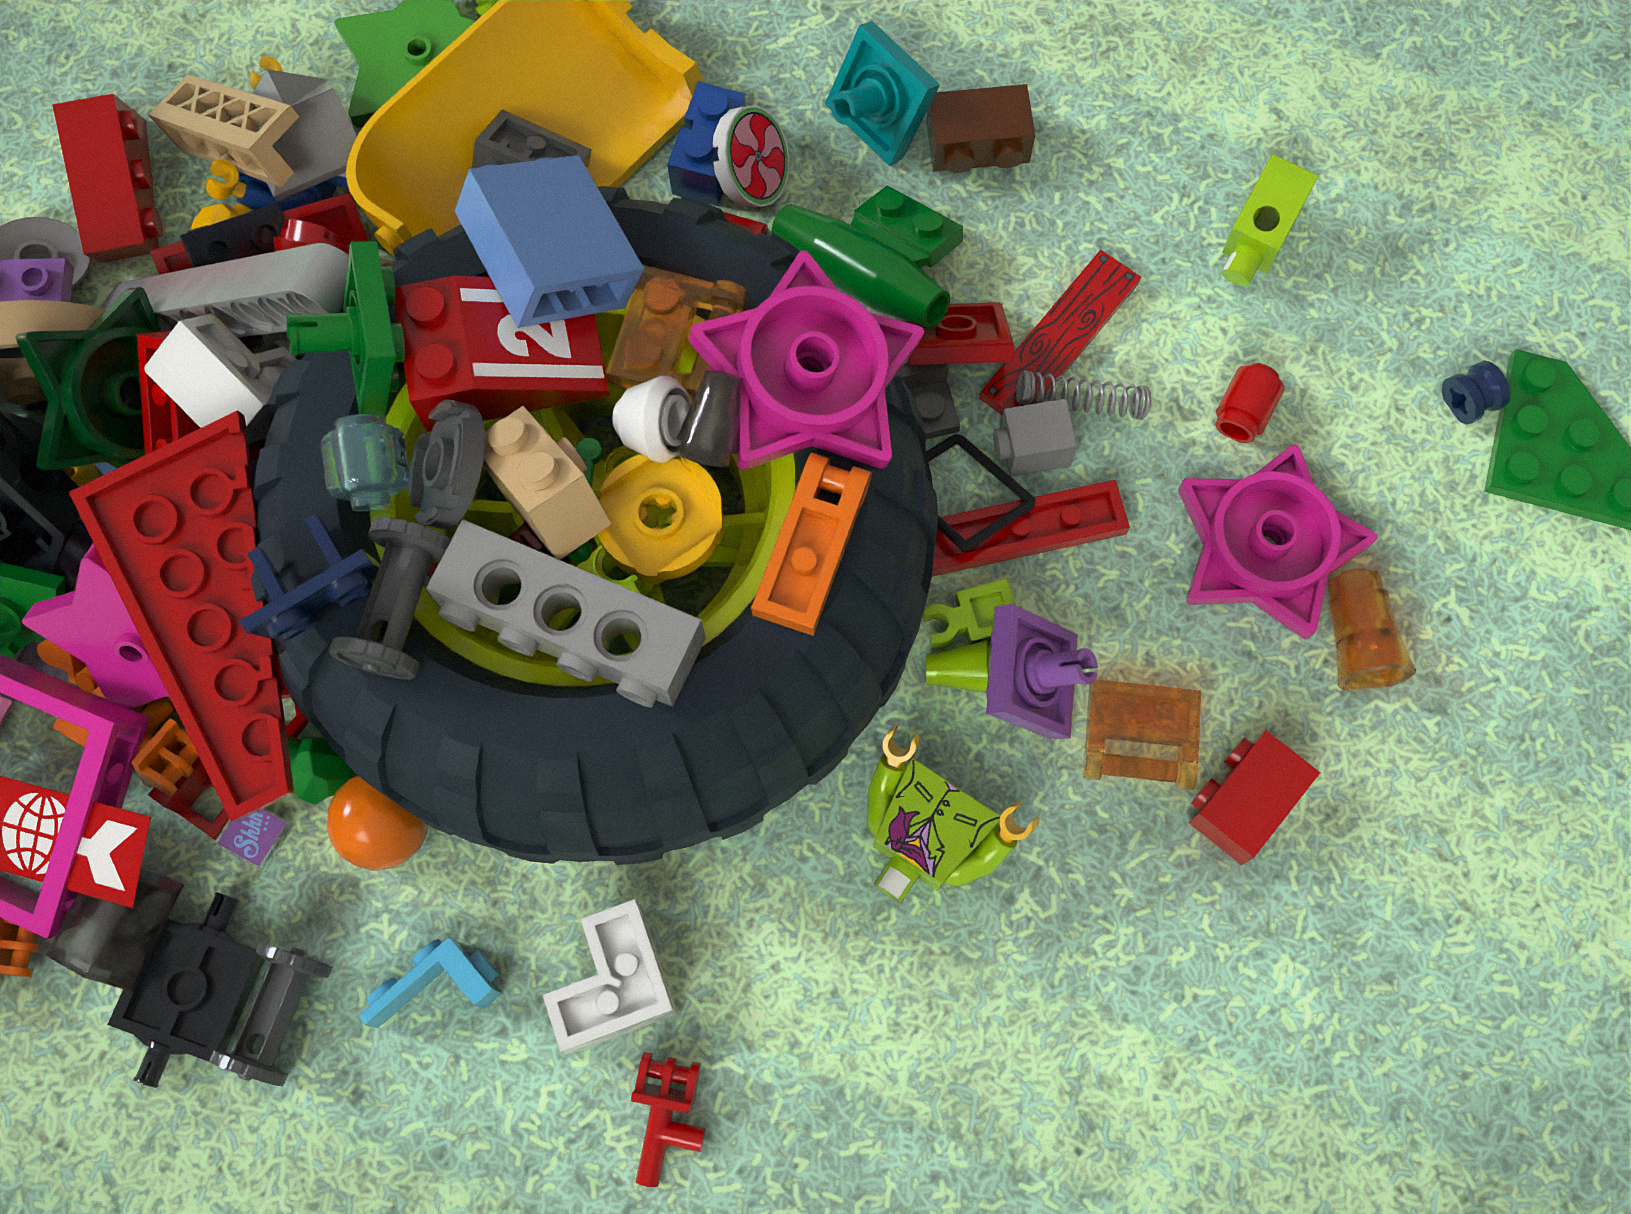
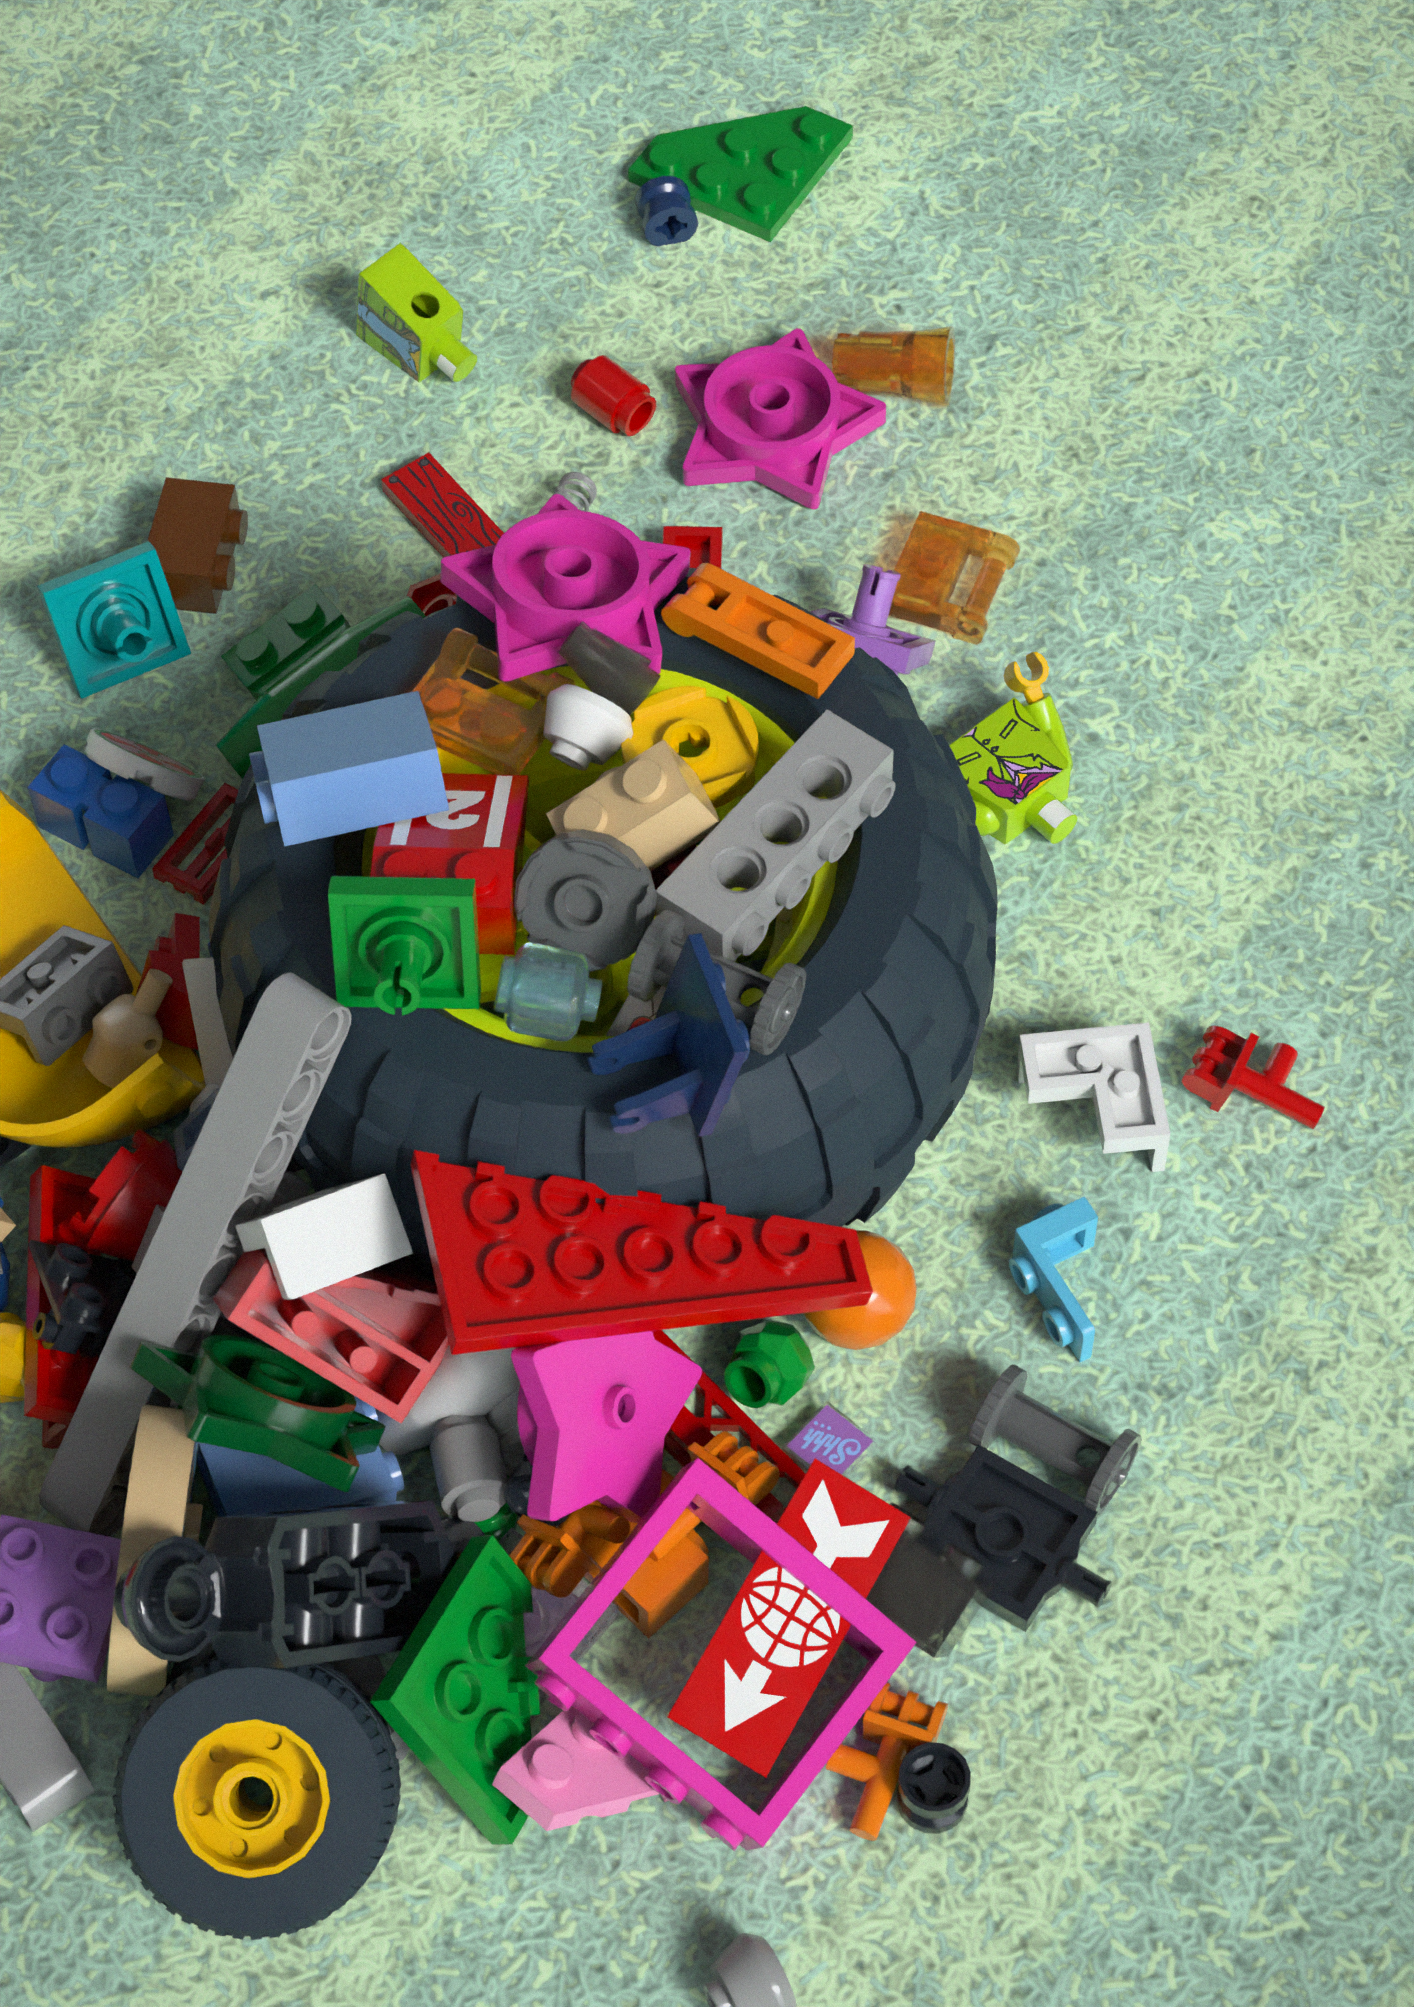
camera: 75 degrees left, 15 degrees down
(1252, 797) = (1043, 498): red brick -> none

